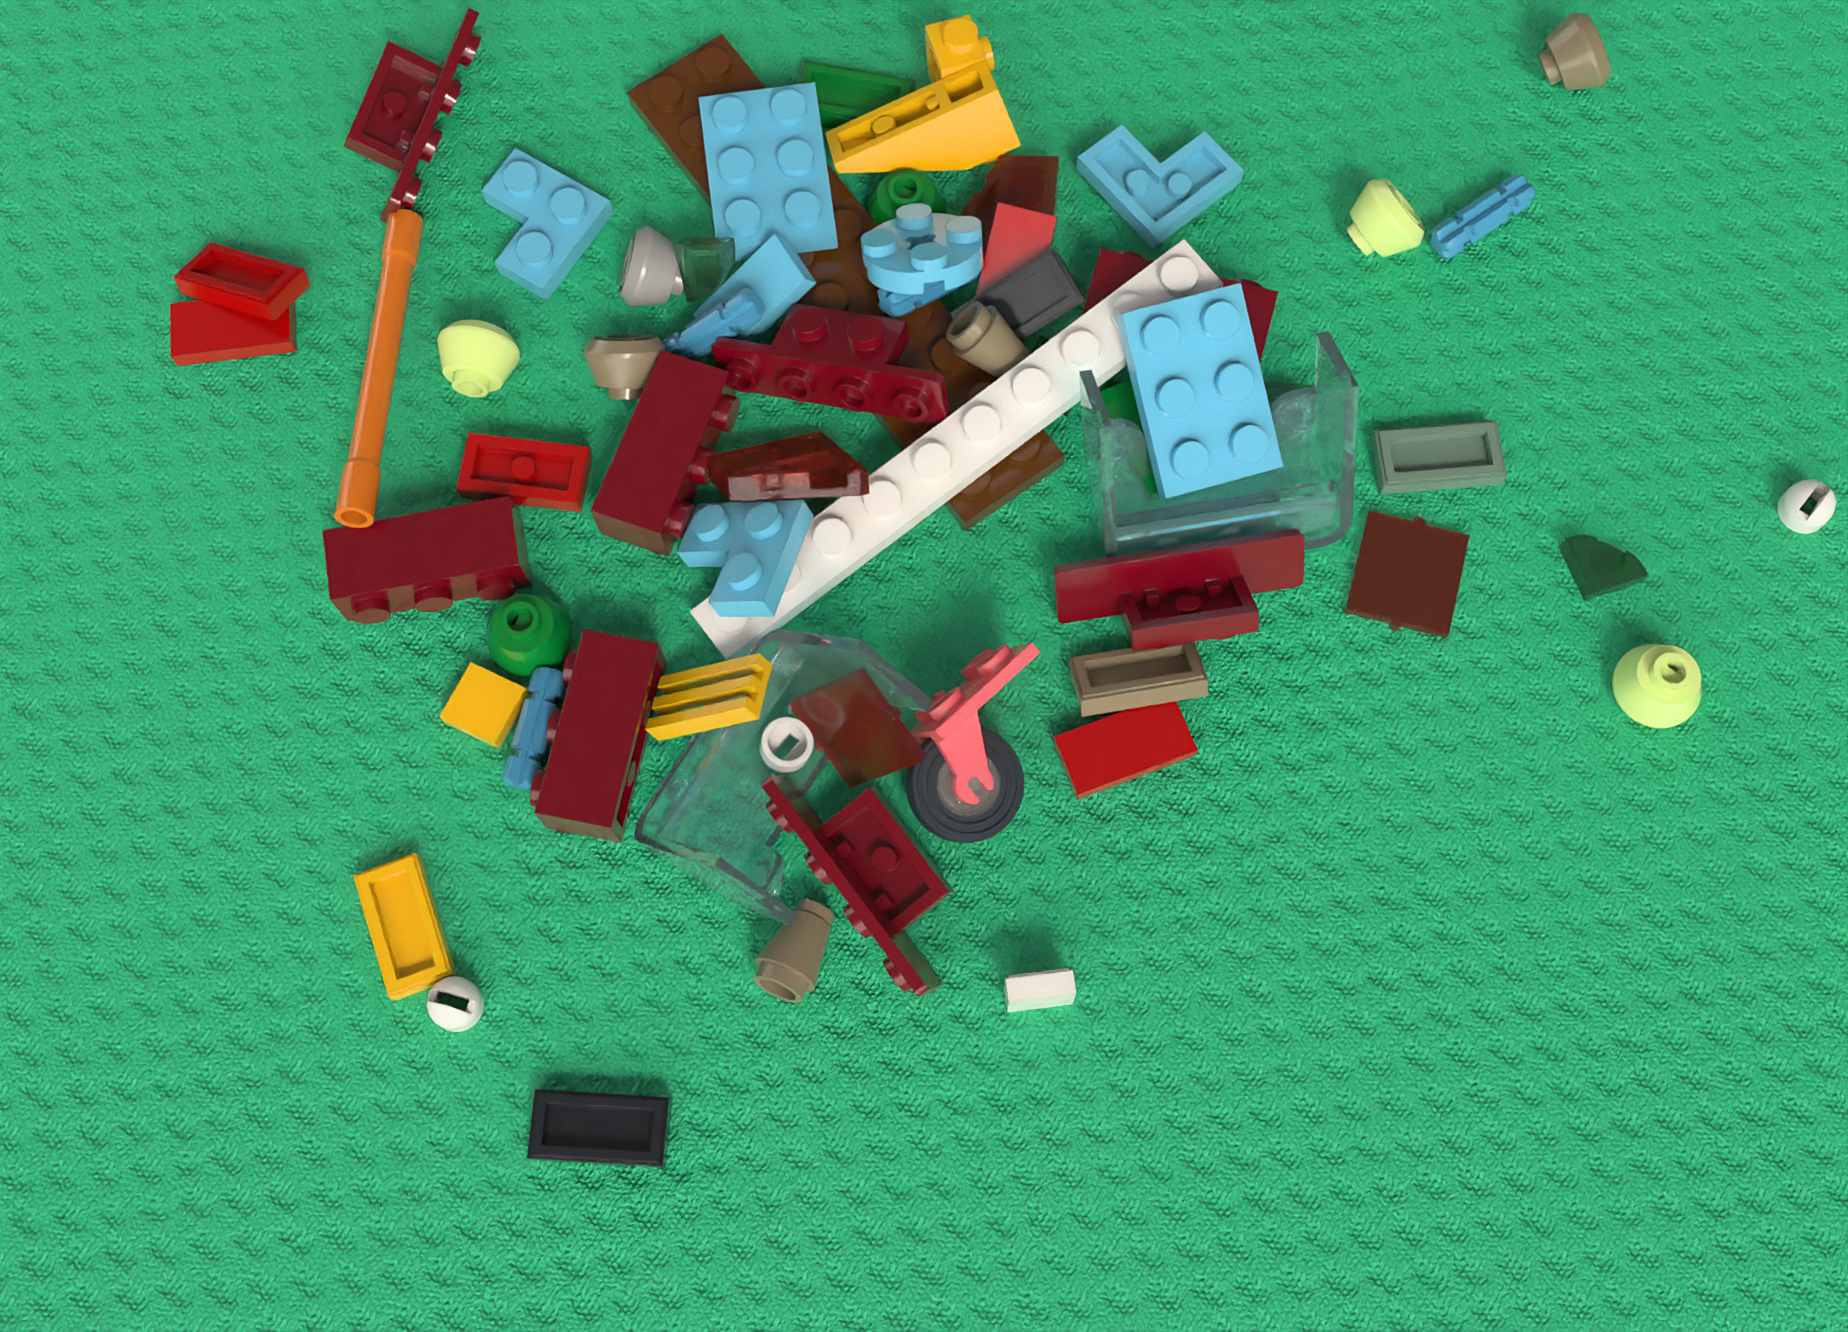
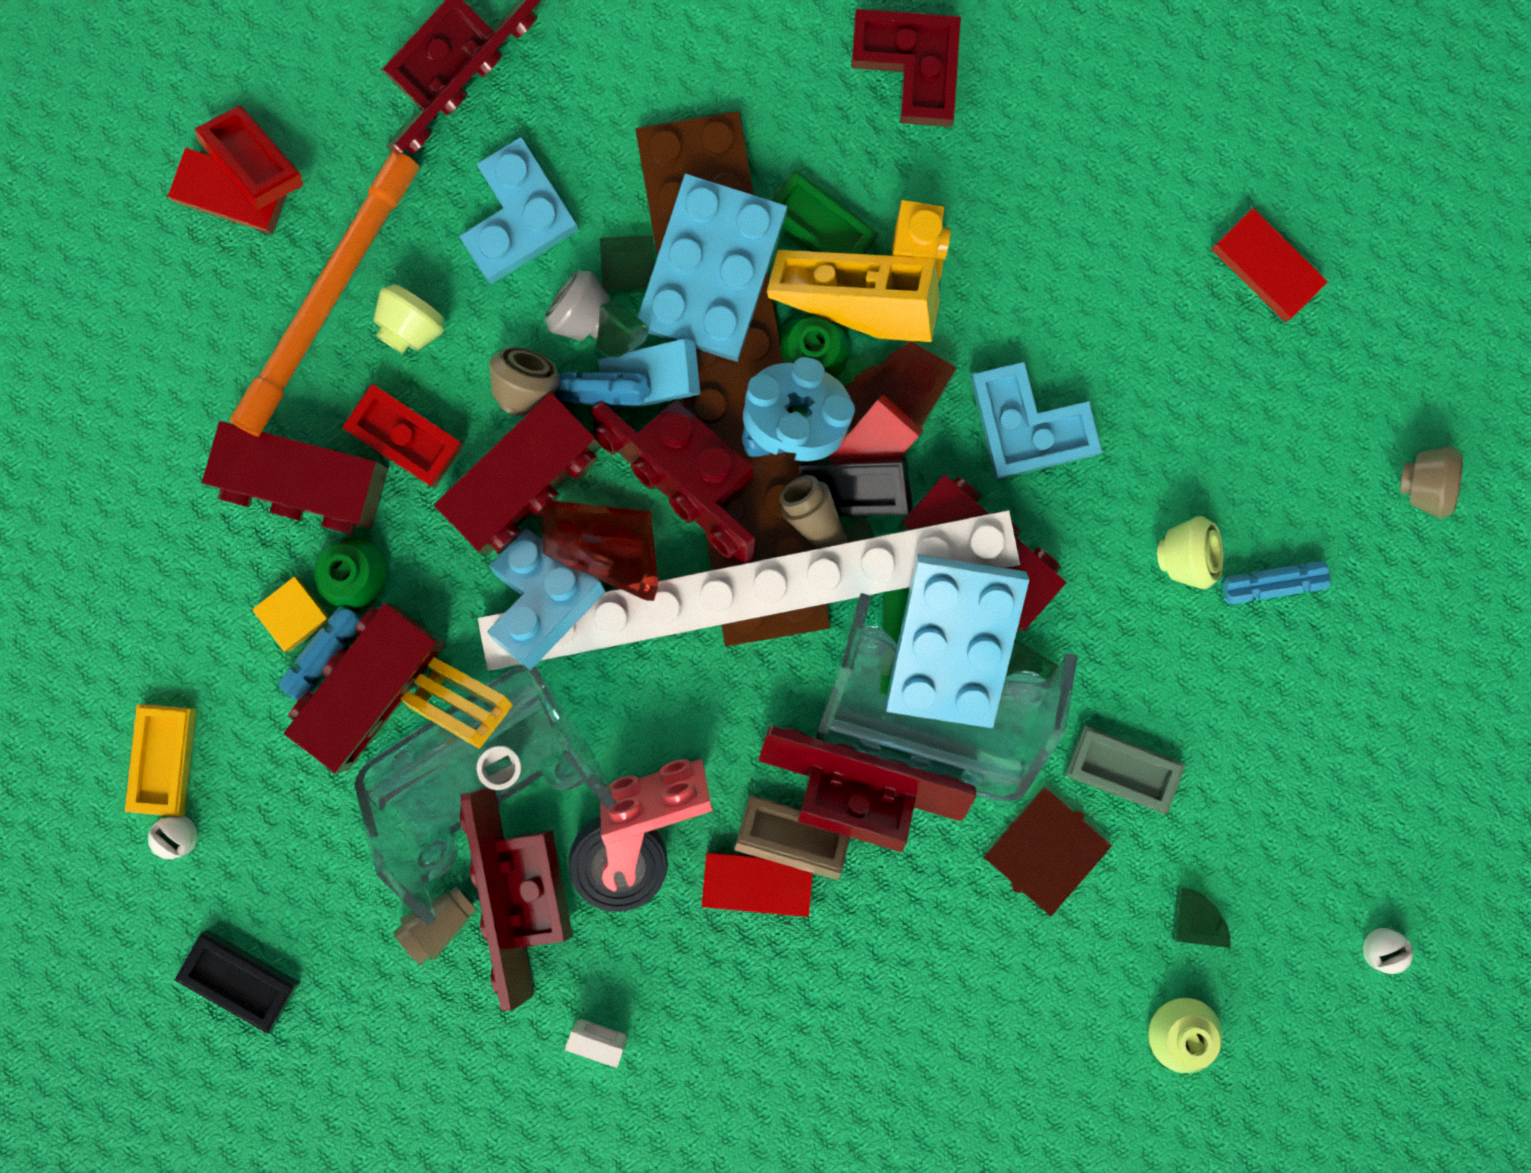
camera: 20 degrees right, 15 degrees up
(680, 212) = (627, 263): none -> clear green tile
(857, 728) = (553, 787): clear red piece -> none

